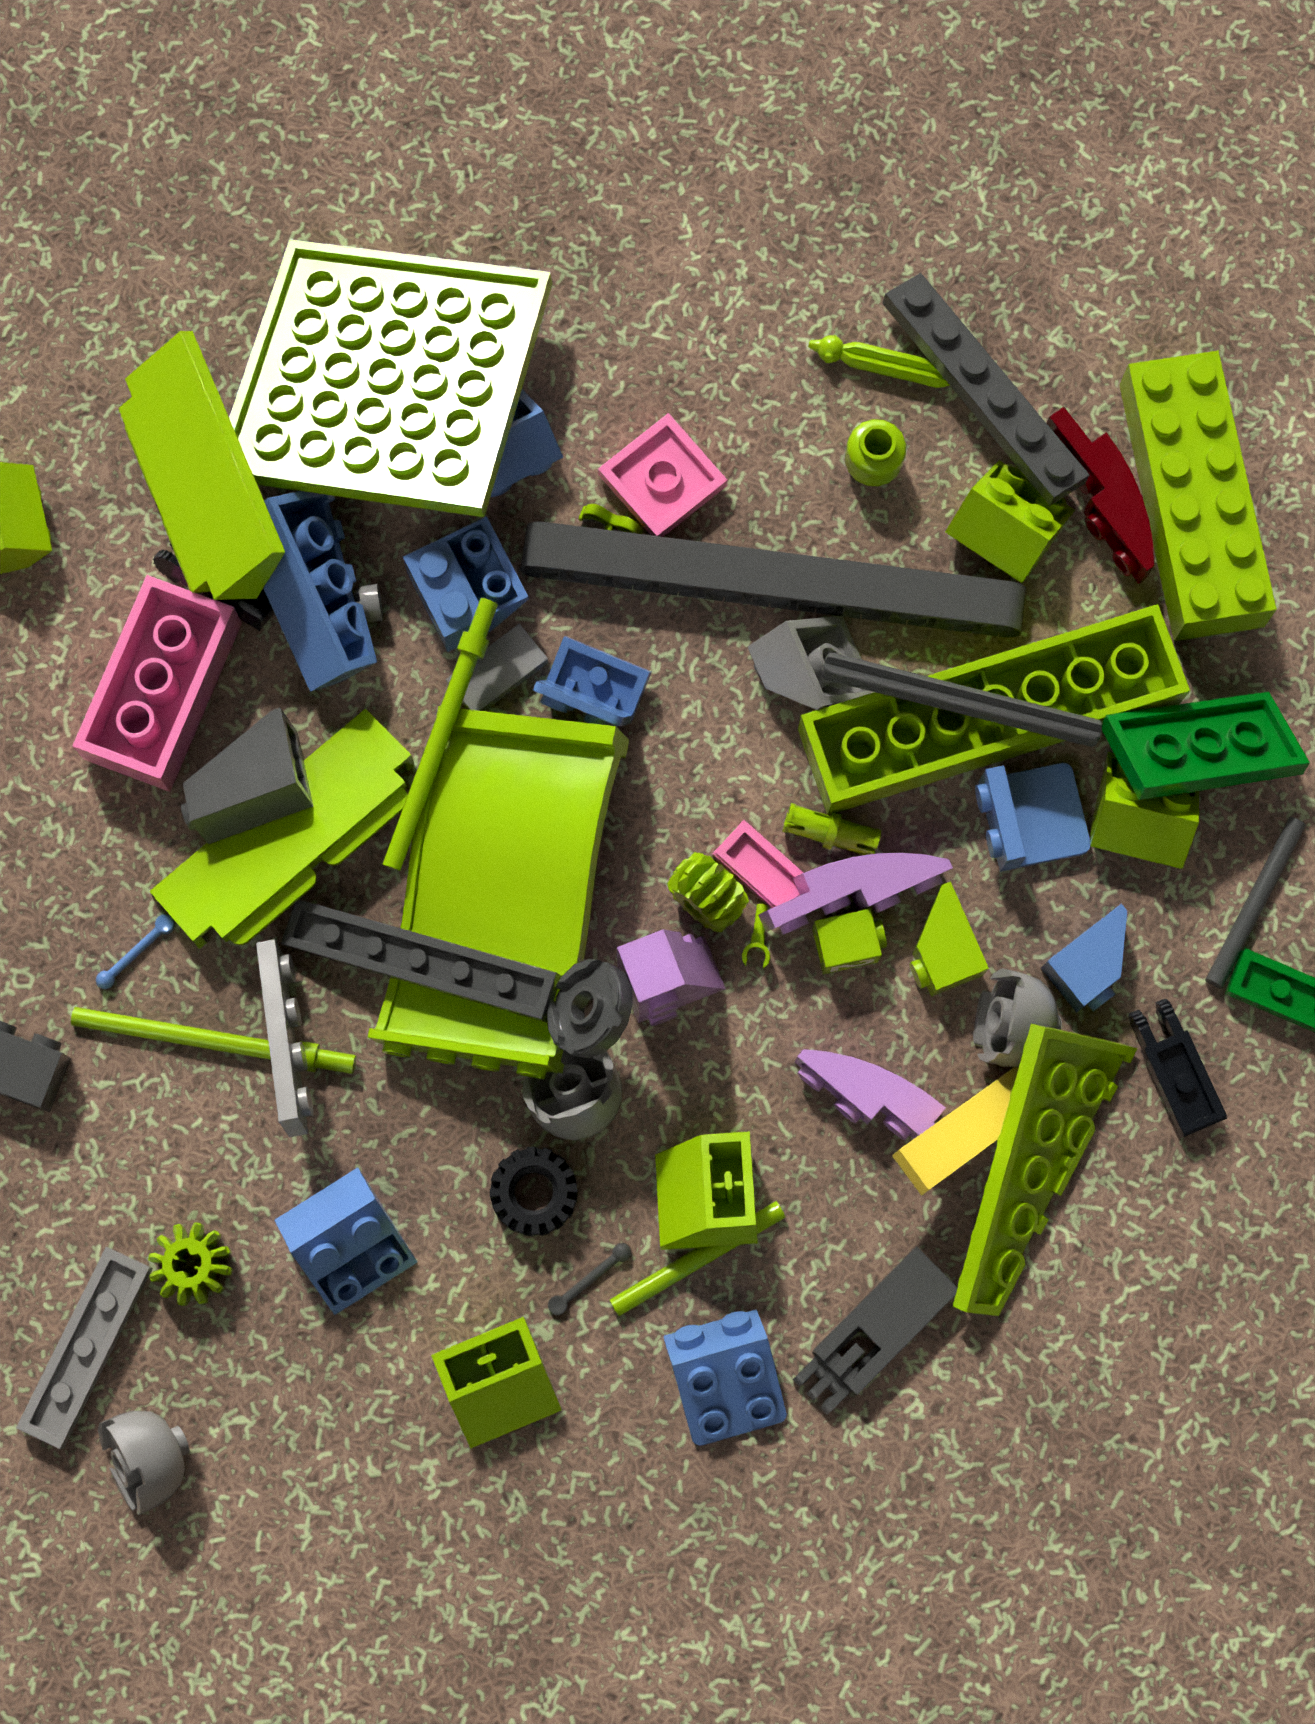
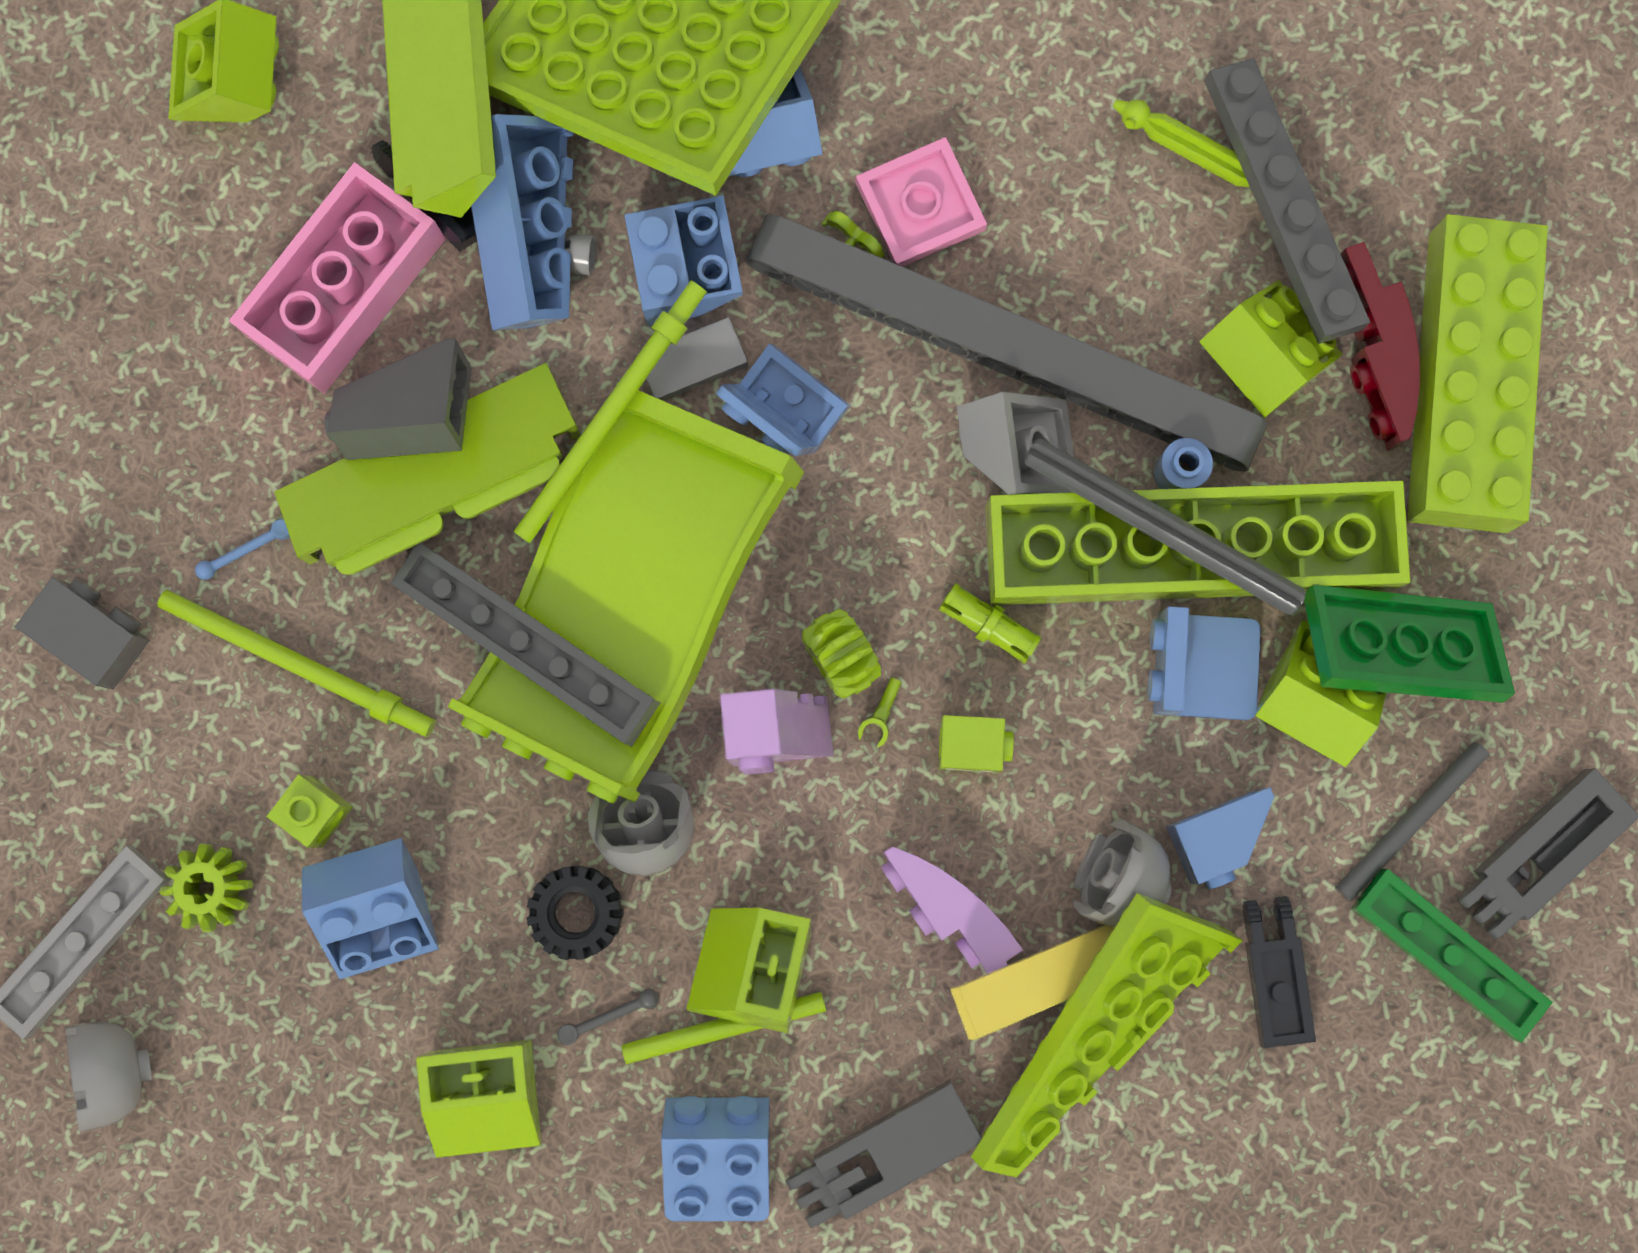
camera: 20 degrees right, 5 degrees up
(267, 1167) = (309, 811): none -> lime brick
(286, 1055) = (358, 698): light grey plate -> none
(609, 1014) = (694, 761): dark grey tile -> none
(758, 865) = (907, 642): bright pink tile -> none
(867, 878) = (1014, 690): lavender slope -> none
(875, 452) = (1150, 237): lime head -> none
(946, 947) = (1073, 778): lime slope -> none
(964, 630) = (1169, 473): none -> medium blue brick

